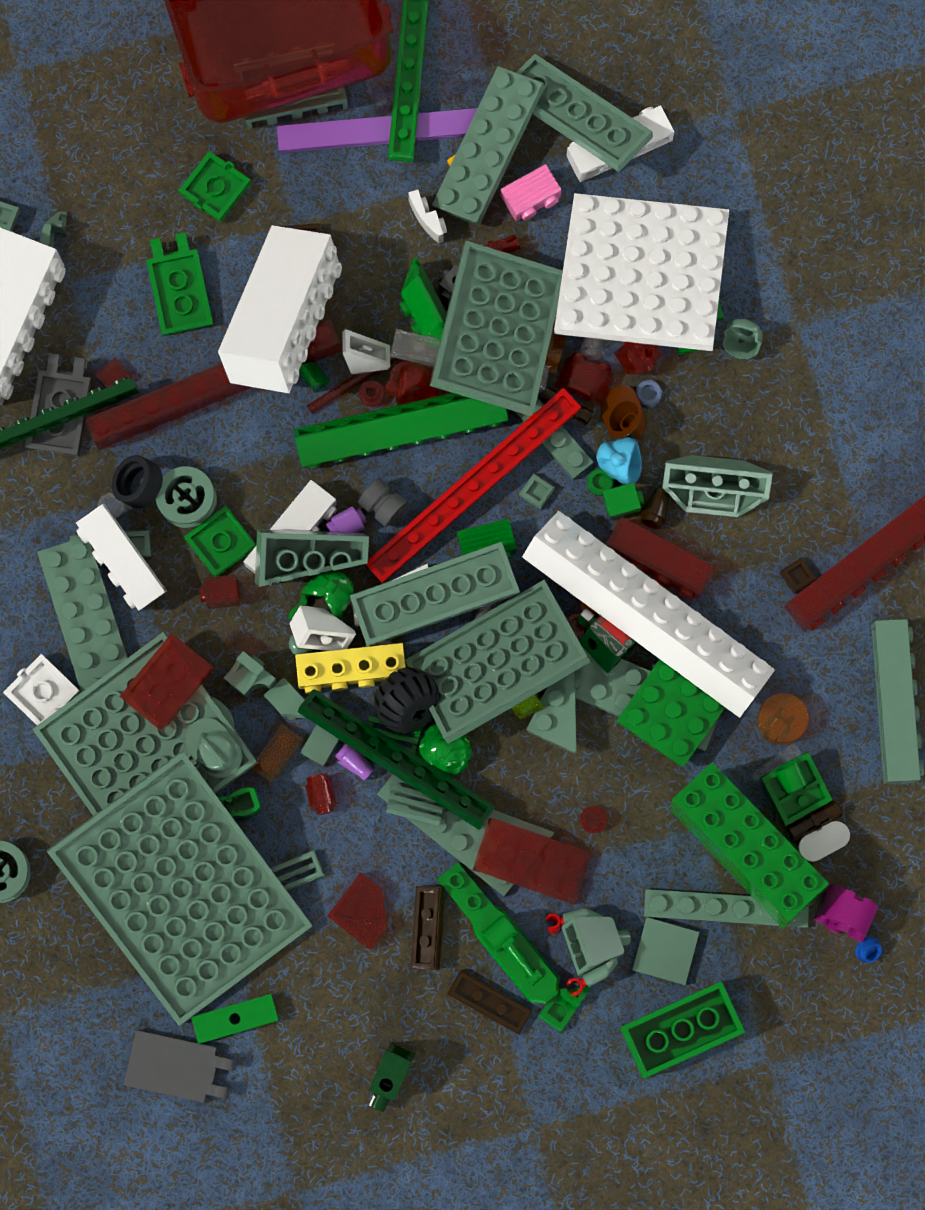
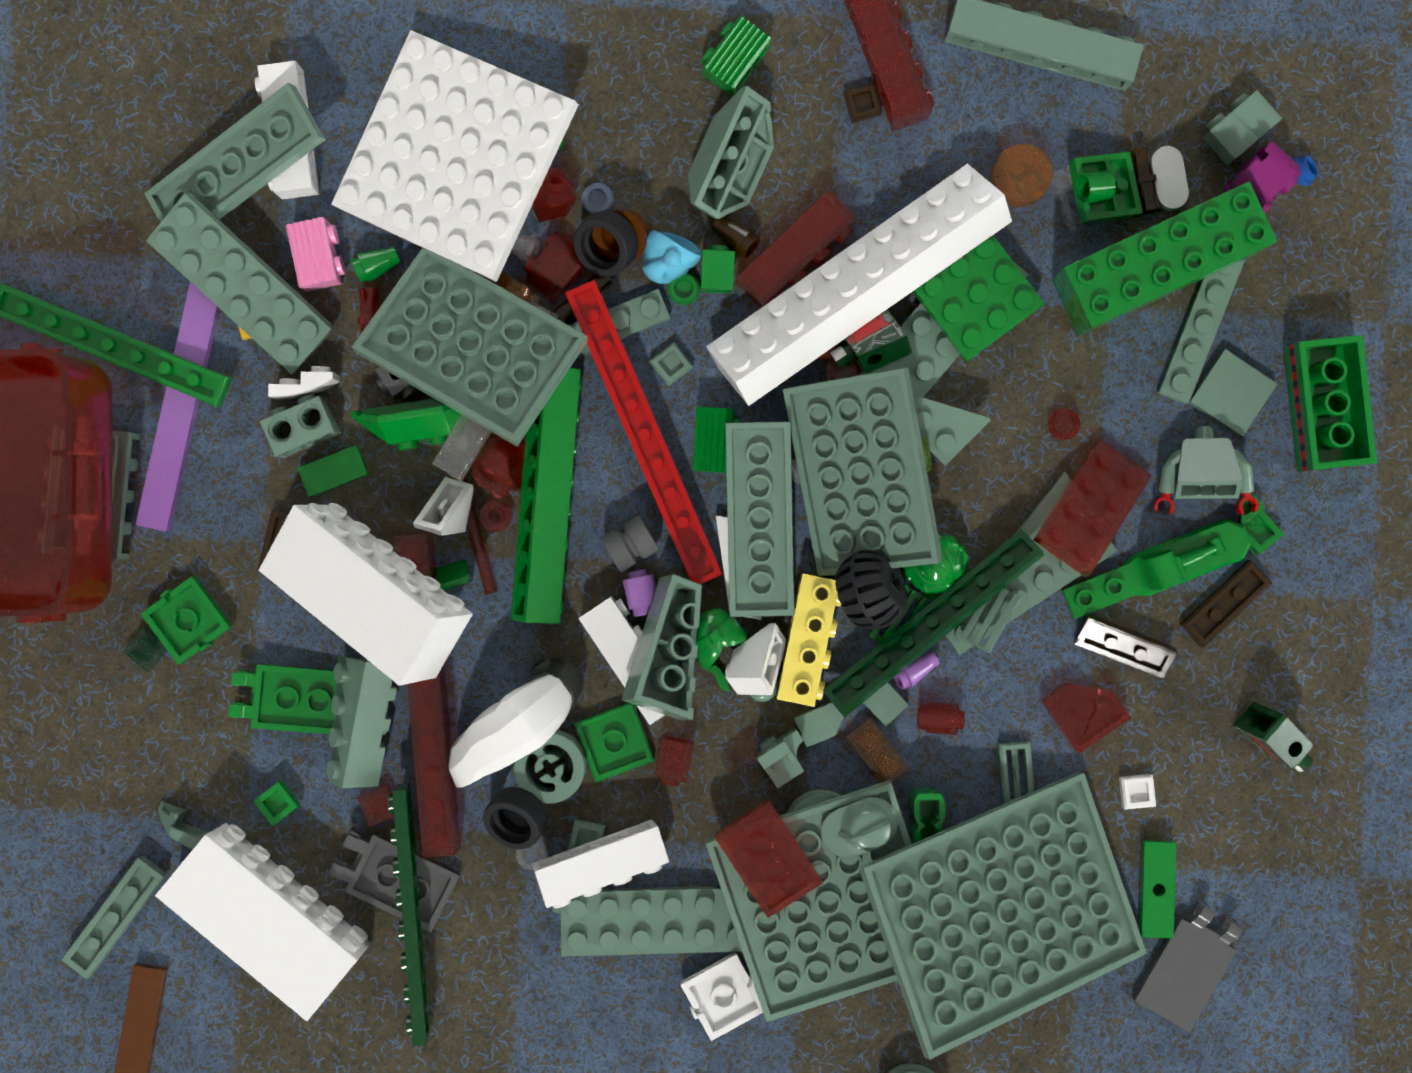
camera: 75 degrees left, 10 degrees up
(92, 298) = (277, 802): none -> green plate
(175, 338) = (358, 722): none -> sand green wedge
(182, 163) = (145, 649): none -> clear green tile
(216, 455) = (516, 723): none -> white piece
(310, 978) = (1137, 791): none -> white tile
(366, 260) = (333, 471): none -> green tile
(388, 227) = (302, 433): none -> sand green brick
(539, 239) = (374, 263): none -> green cone
(622, 417) = (591, 257): none -> black tyre
(748, 332) = (566, 58): sand green hair -> none
(798, 462) = (736, 55): none -> green brick
(884, 885) = (1242, 127): none -> sand green brick

